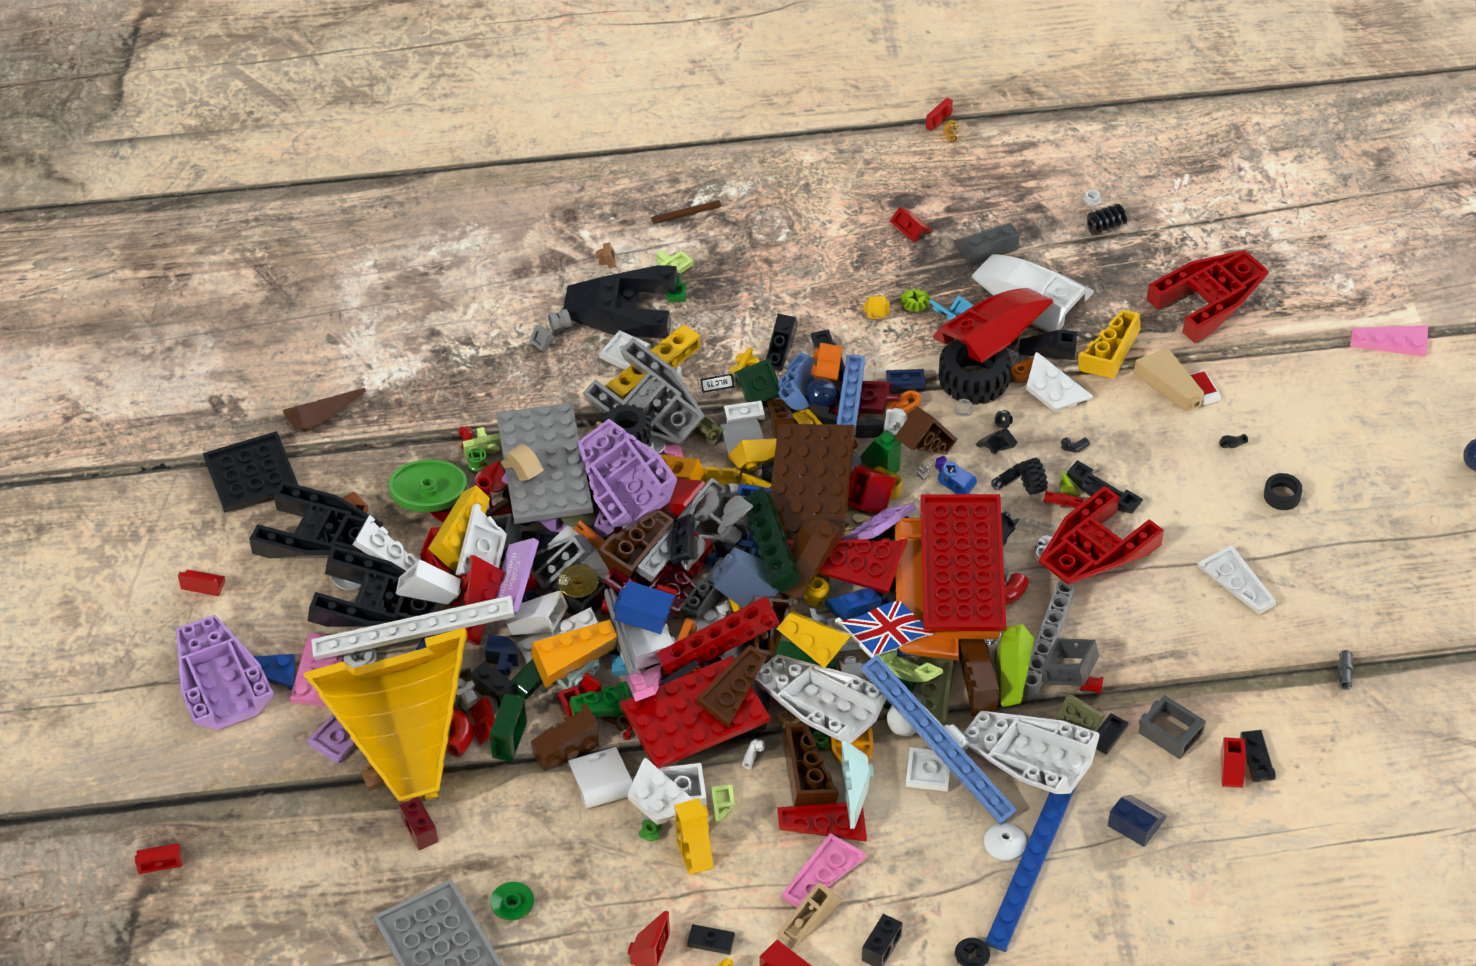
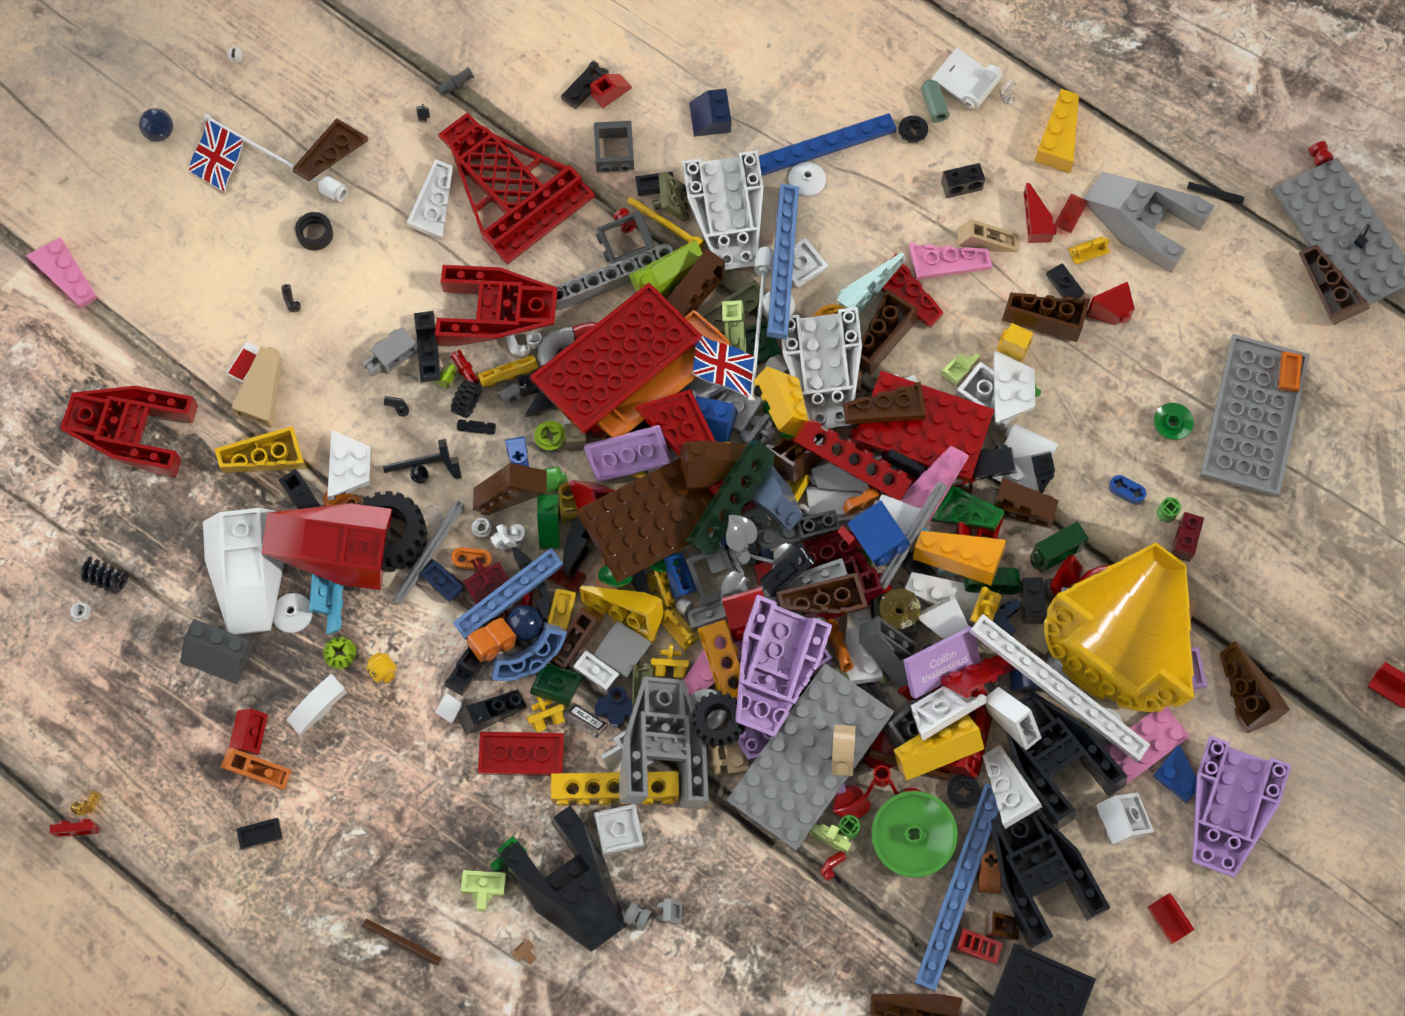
camera: 135 degrees left, 20 degrees up
(256, 757) = (1254, 695): none -> reddish brown wedge
(287, 611) = (1124, 818): none -> white slope
(320, 480) = (1001, 926): none -> reddish brown slope
(333, 469) = (982, 939): none -> red slope
(363, 478) = (958, 891): none -> medium blue plate
(413, 537) = (970, 784): none -> black gear
(451, 832) = (1164, 511): none -> bright green wheel
(499, 825) = (1127, 490): none -> blue beam
(520, 641) = (986, 604): none -> yellow hips
(577, 774) = (1043, 469): none -> black slope
(617, 746) = (995, 463): none -> black brick
(696, 891) = (1047, 314): none -> reddish brown wedge
(704, 450) = (660, 664): none -> yellow hips
(711, 408) = (614, 708): none -> dark blue plate
(734, 338) = (520, 753): none -> red plate
(809, 326) = (449, 708): none -> white slope
(835, 190) = (259, 833): none -> black plate
(880, 209) = (255, 768): none -> orange slope
(890, 265) = (316, 704): none -> white slope
(914, 483) = (555, 478): none -> bright green head
(936, 388) = (428, 552): none -> light grey axle
(973, 293) = (298, 619): none -> white dish
(1014, 507) = (509, 391): none -> light grey tile
(1022, 418) = (410, 463): none -> black bar
(1024, 556) = (553, 343): none -> light grey cylinder
(1033, 521) = (507, 371): none -> yellow plate
(1054, 711) = (666, 223): none -> yellow piece
(1123, 467) = (391, 352): none -> light grey brick
(1157, 636) = (529, 218): none -> red wing
(1334, 628) = (422, 113): none -> black plate
(1353, 545) = (329, 149): none -> reddish brown wing
(1412, 478) = (221, 150): none -> flag

